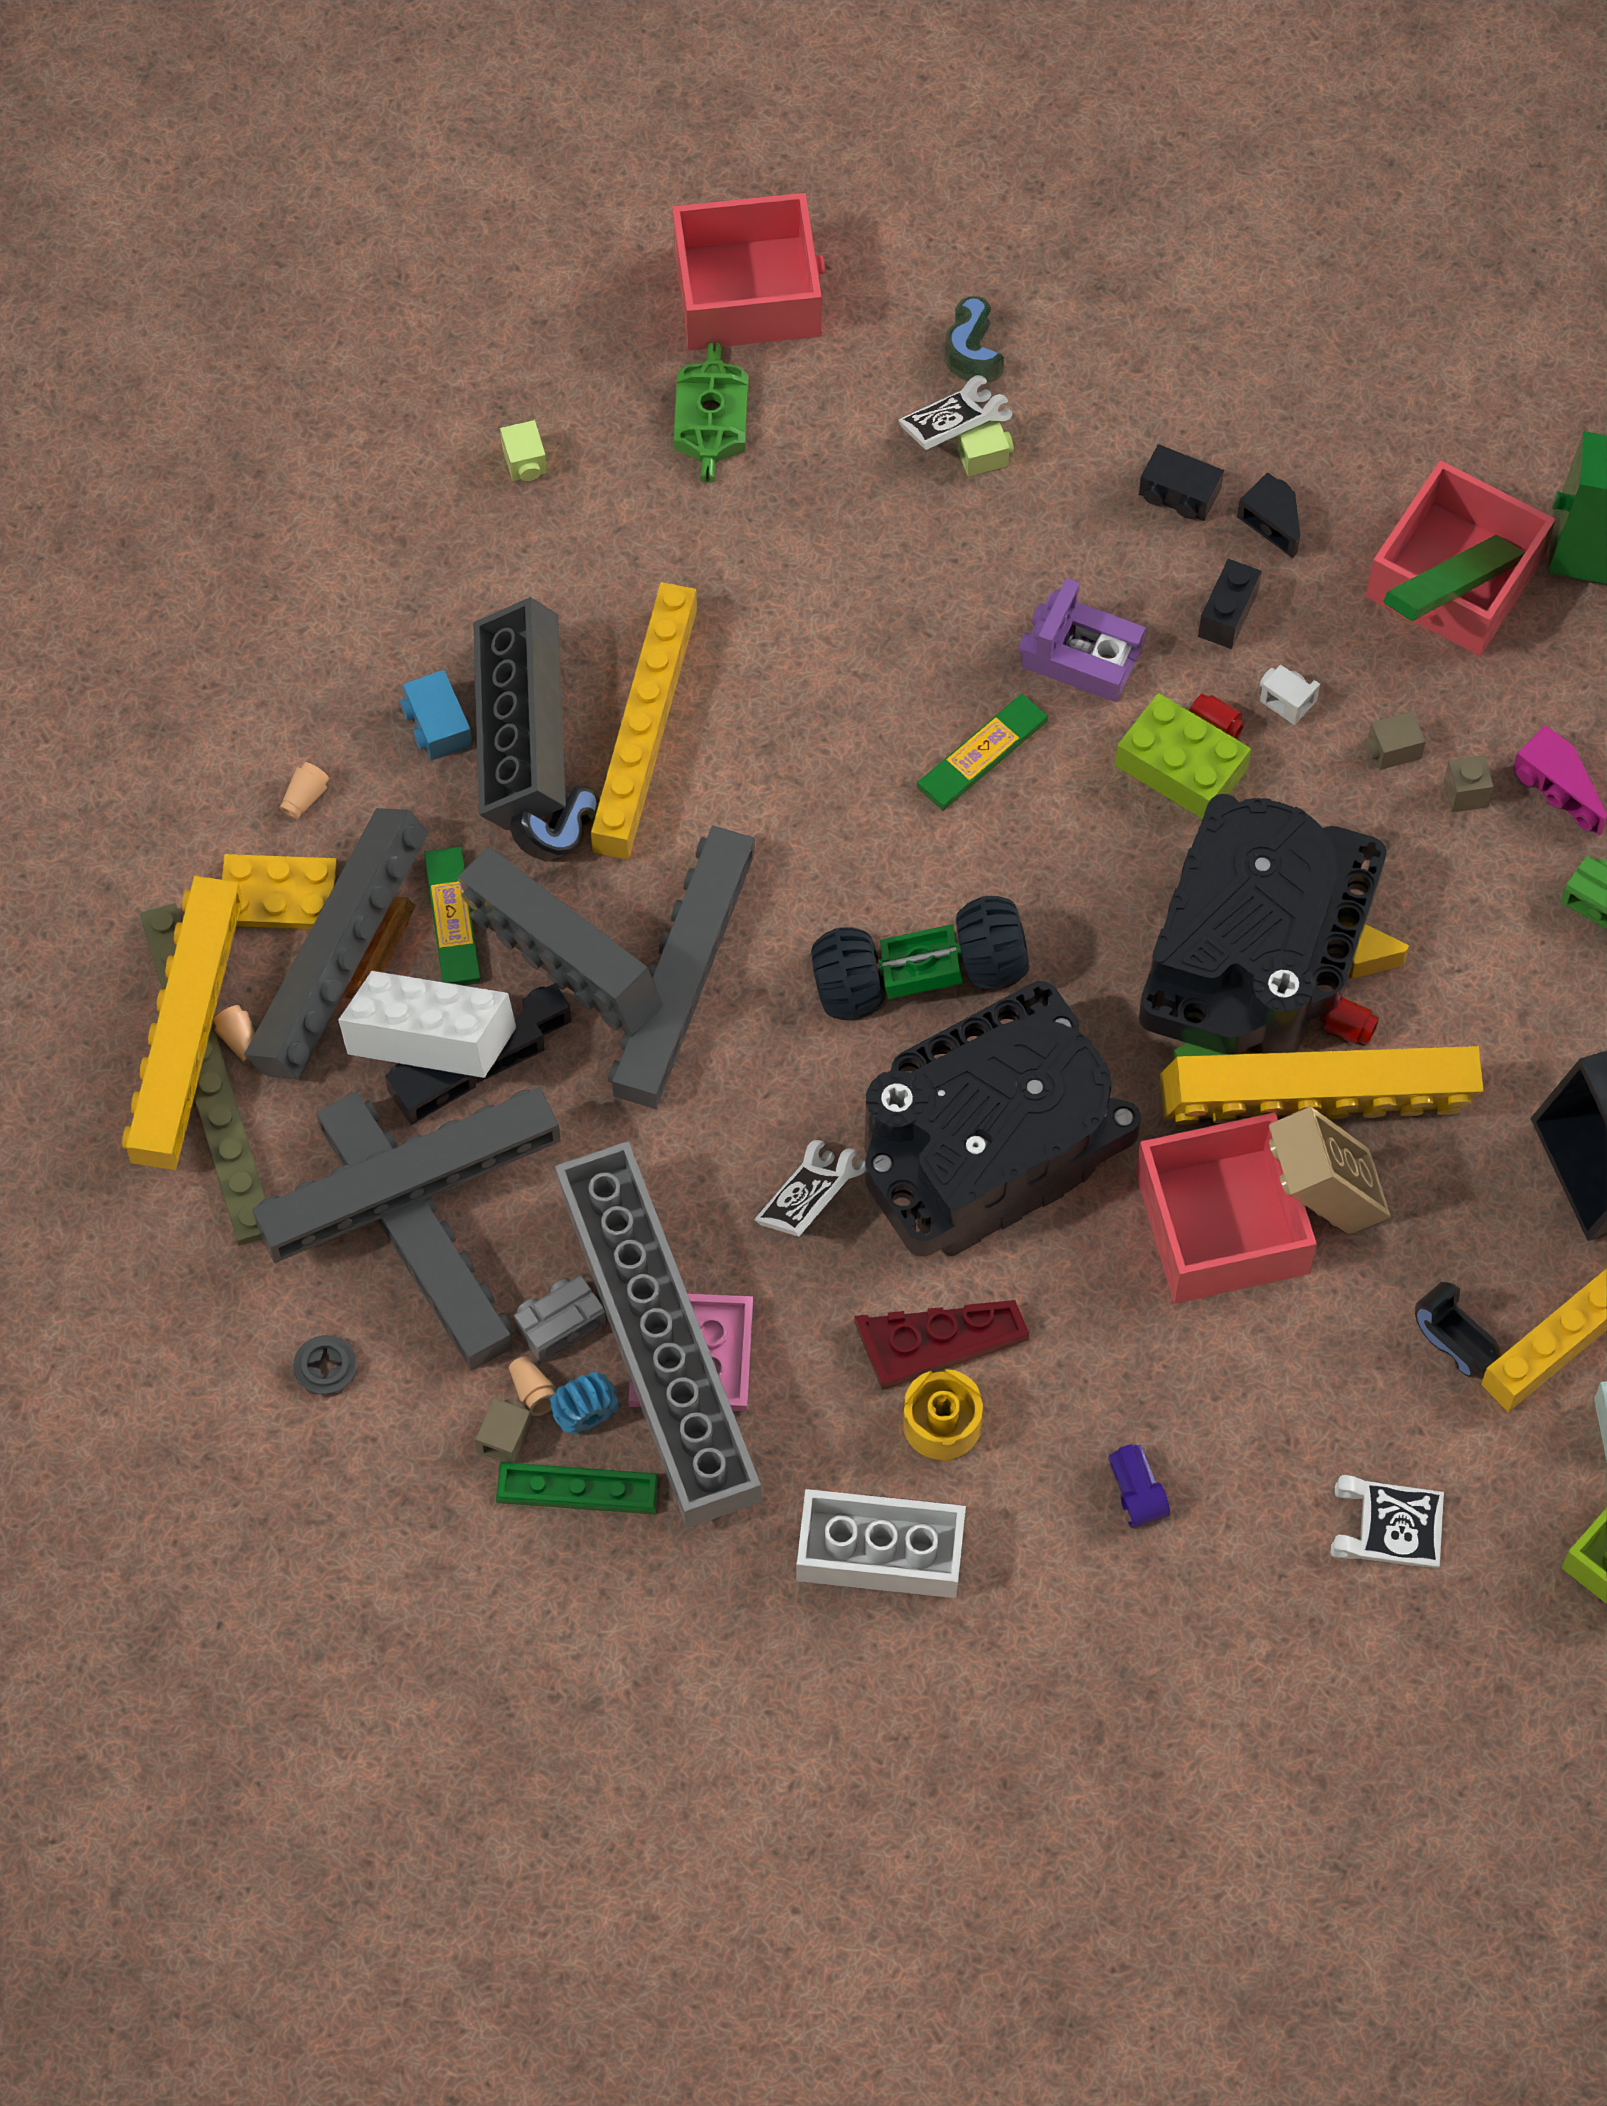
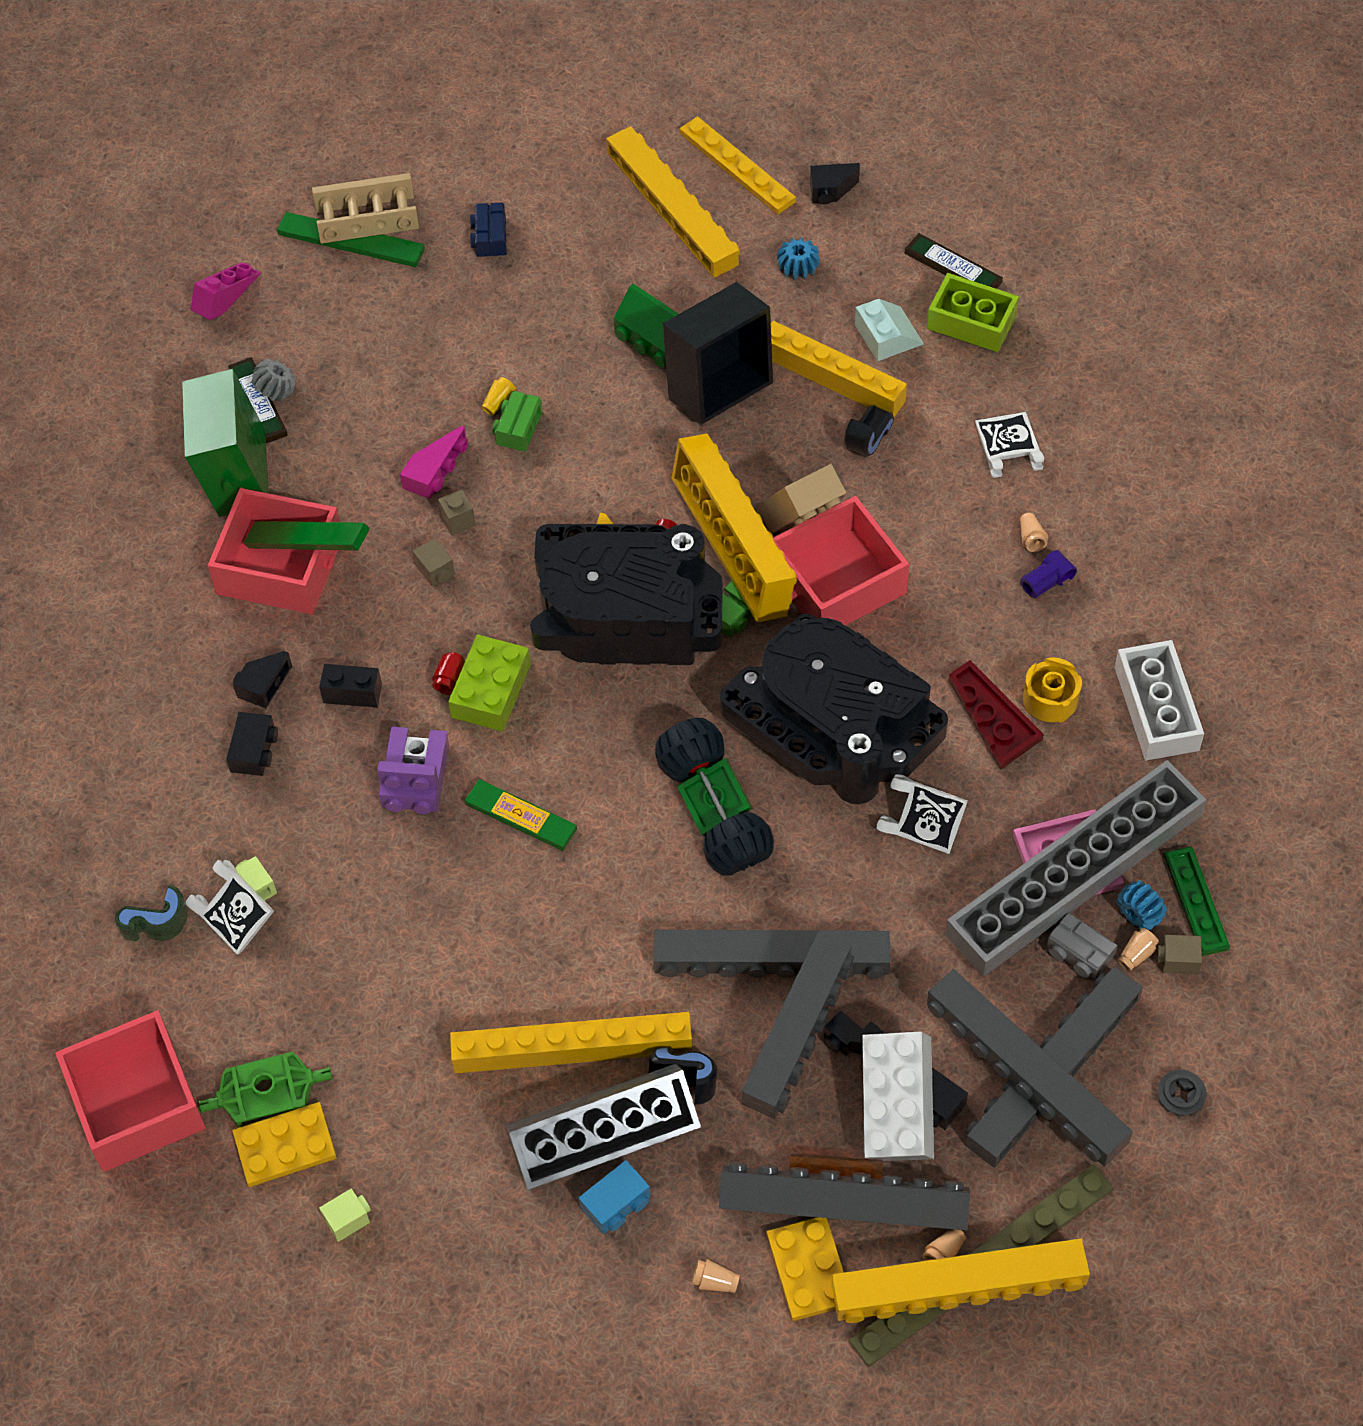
camera: 105 degrees left, 5 degrees down
(452, 917) = (785, 1130): tile -> none
(636, 417) = (284, 1144): none -> yellow plate
(1217, 1493) = (1032, 533): none -> light nougat cone
(1288, 693) = (414, 634): white brick -> none

